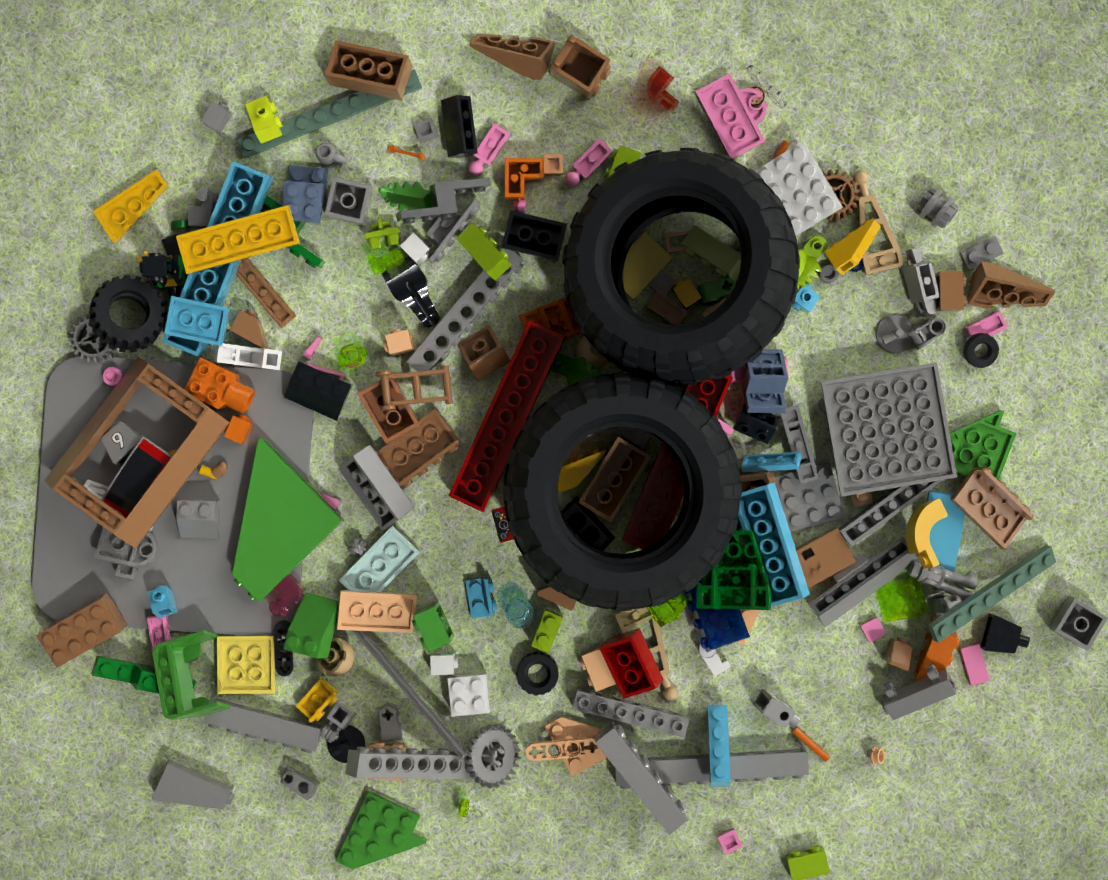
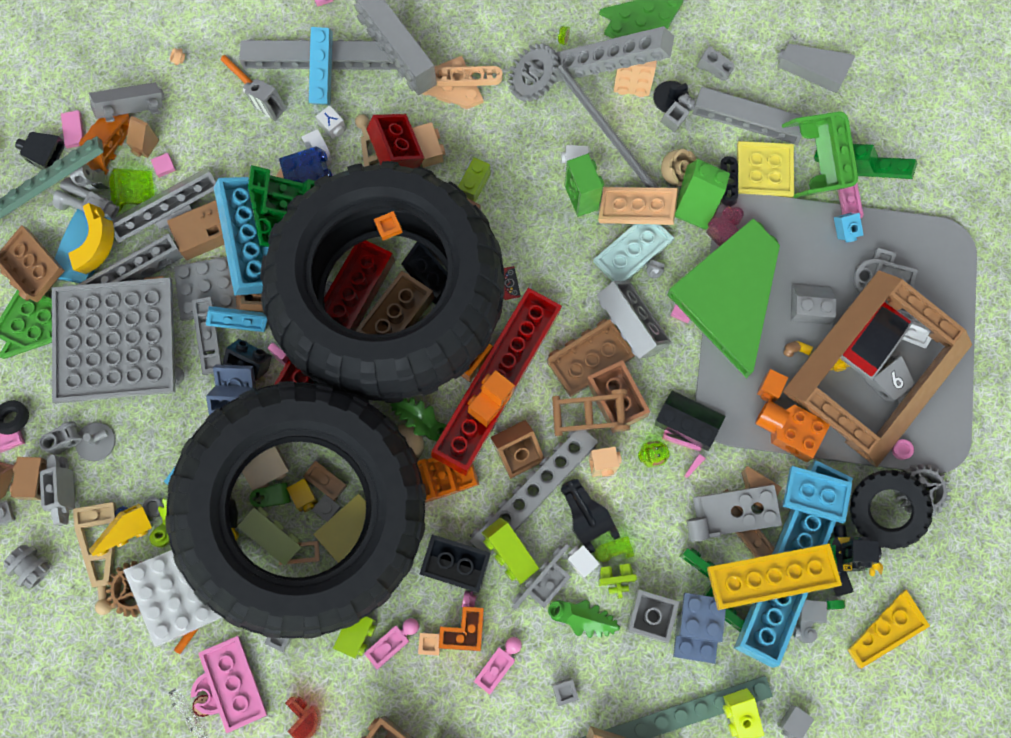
camera: 175 degrees left, 15 degrees down
(81, 630) = (926, 206): medium nougat brick -> none
(248, 356) = (761, 460): white arch -> none
(291, 297) = (715, 514): none -> light grey hinge
(317, 699) = (696, 133): yellow bracket -> none
(328, 154) = (673, 672): light grey piece -> none
(390, 726) = (629, 110): light grey piece -> none
(392, 149) = (602, 674): orange hinge -> none
(443, 200) = (550, 609): dark grey bracket -> none
(459, 126) = (528, 693): black brick -> none
(469, 694) = (552, 129): white brick -> none
(480, 597) = (536, 216): medium azure bracket -> none
(510, 388) = (494, 395): none -> orange brick
(526, 614) = (497, 204): clear light blue helmet -> none
(532, 687) = (490, 131): black tyre -> none
(616, 528) = (388, 225): none -> orange plate
(630, 712) = (397, 102): light grey brick -> none
(702, 687) = (331, 122): none -> white brick

